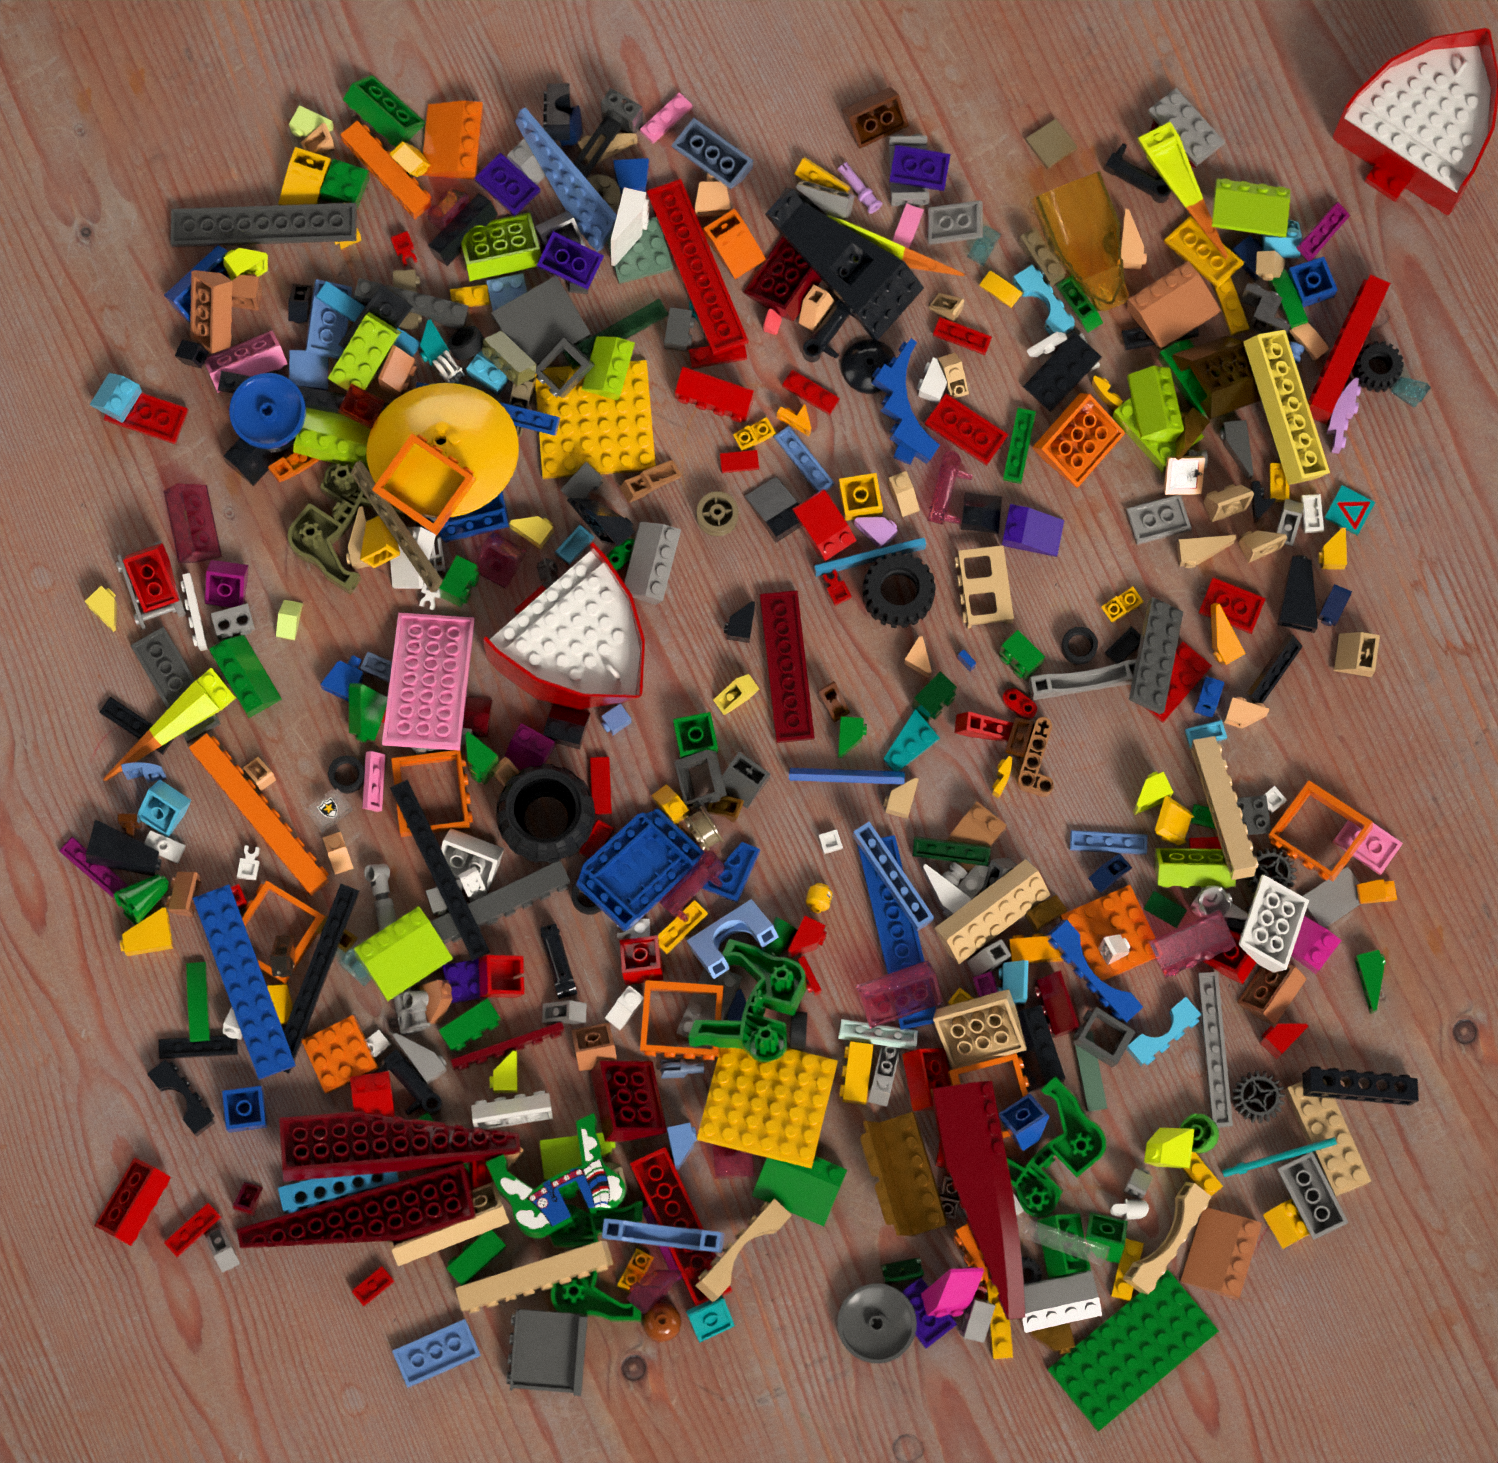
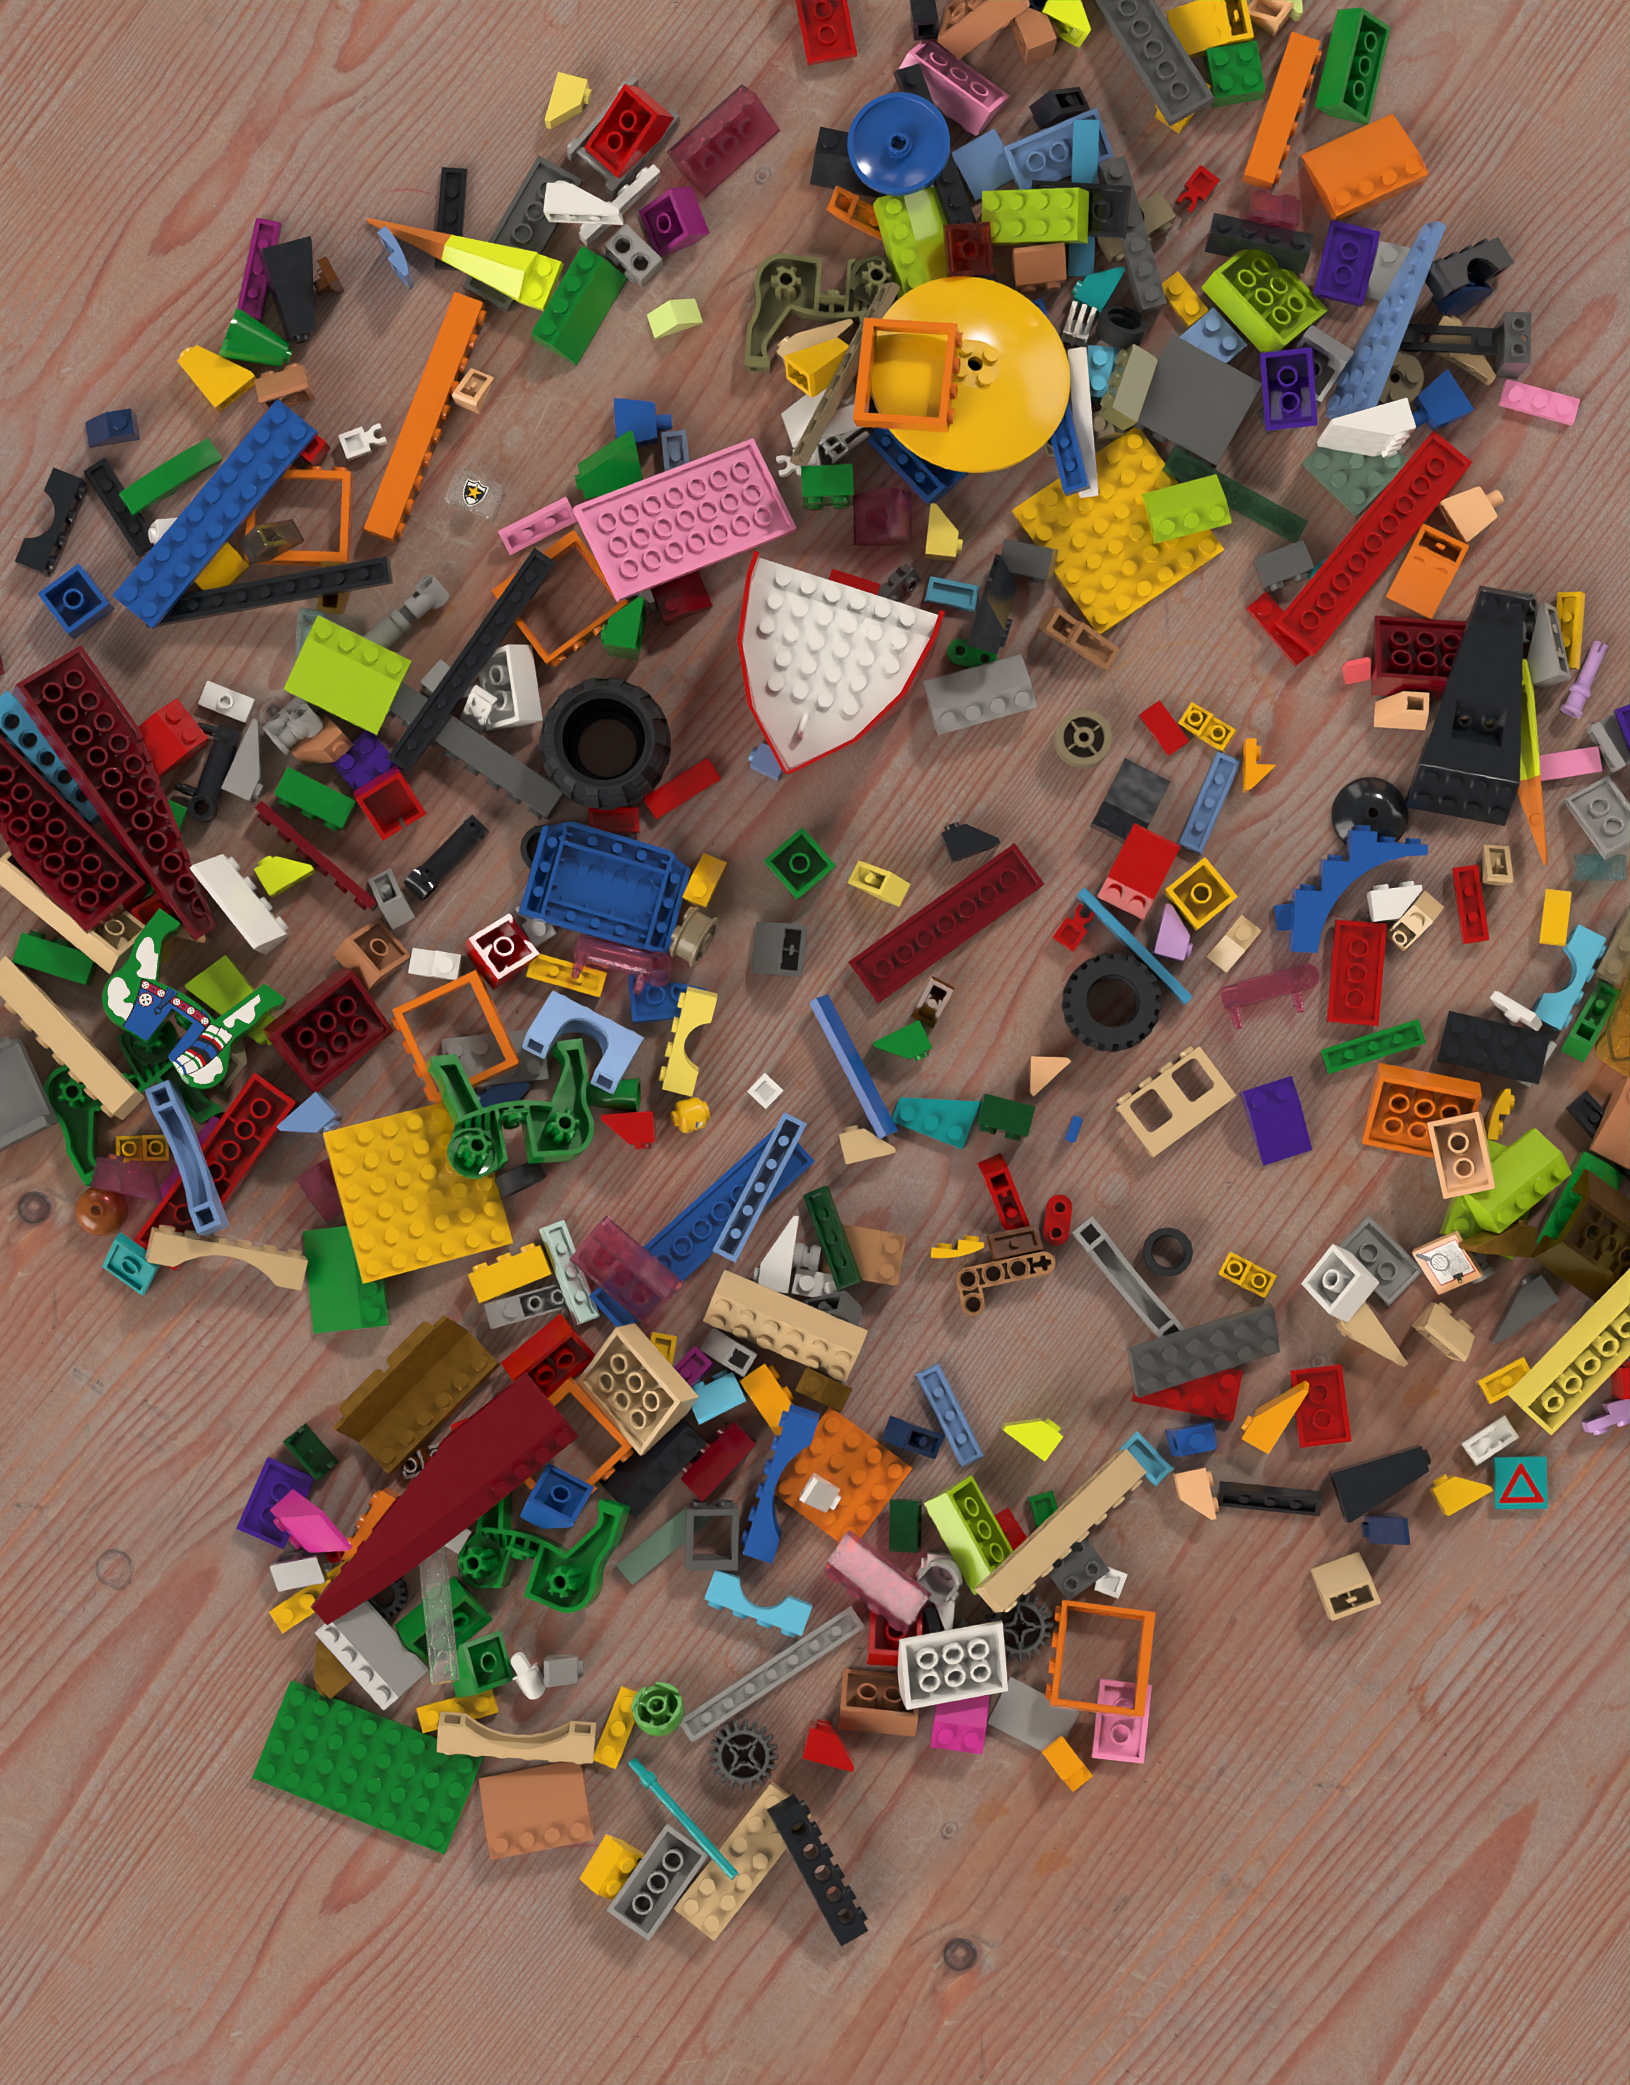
camera: 65 degrees right, 10 degrees up
(142, 1023) = (112, 428): none -> dark blue slope
(163, 808) = (371, 305): medium azure slope -> none
(167, 847) = (328, 333): white plate -> none
(180, 637) = (573, 205): none -> white slope
(337, 853) = (432, 533): light nougat slope -> none
(339, 1054) = (200, 671): orange plate -> none
(346, 760) = (516, 474): black tyre -> none
(410, 159) = (1308, 131): yellow slope -> none
(504, 770) = (633, 669): light nougat slope -> none
(508, 396) = (1083, 414): none -> white sticker
(529, 748) = (675, 681): magenta slope -> none
(566, 726) = (727, 709): black slope -> none
(586, 366) = (1177, 463): dark grey window -> none
(679, 1068) = (401, 1066): sand blue arm -> none
(682, 768) = (739, 885): dark grey window -> none
(713, 154) = (1523, 482): sand blue slope -> none
(714, 395) = (1225, 653): red slope -> none
(726, 807) = (736, 945): pearl gold slope -> none
(753, 853) = (696, 1010): none -> light yellow arch
(810, 392) = (1297, 764): red plate -> none
(811, 984) = (584, 1163): red plate -> none
(826, 332) = (1380, 741): black piece -> none
(877, 1323) = (232, 1457): dark grey dish -> none
(981, 513) = (1265, 1047): black slope -> none
(1021, 655) = (1113, 1190): green brick -> none
(1121, 425) = (1462, 1155): none -> light nougat slope
(1124, 646) = (1197, 1304): black tile -> none
(1160, 547) = (1340, 1283): none -> white brick
(1170, 1148) = (623, 1684): neon yellow slope -> none
(1173, 822) = (1014, 1479): yellow slope -> none
(1259, 505) = (1462, 1373): black slope -> none
(1260, 543) = (1415, 1398): tan slope -> none
(1290, 520) = (1463, 1418): light grey slope -> none
(1371, 971) = (963, 1810): green slope -> none

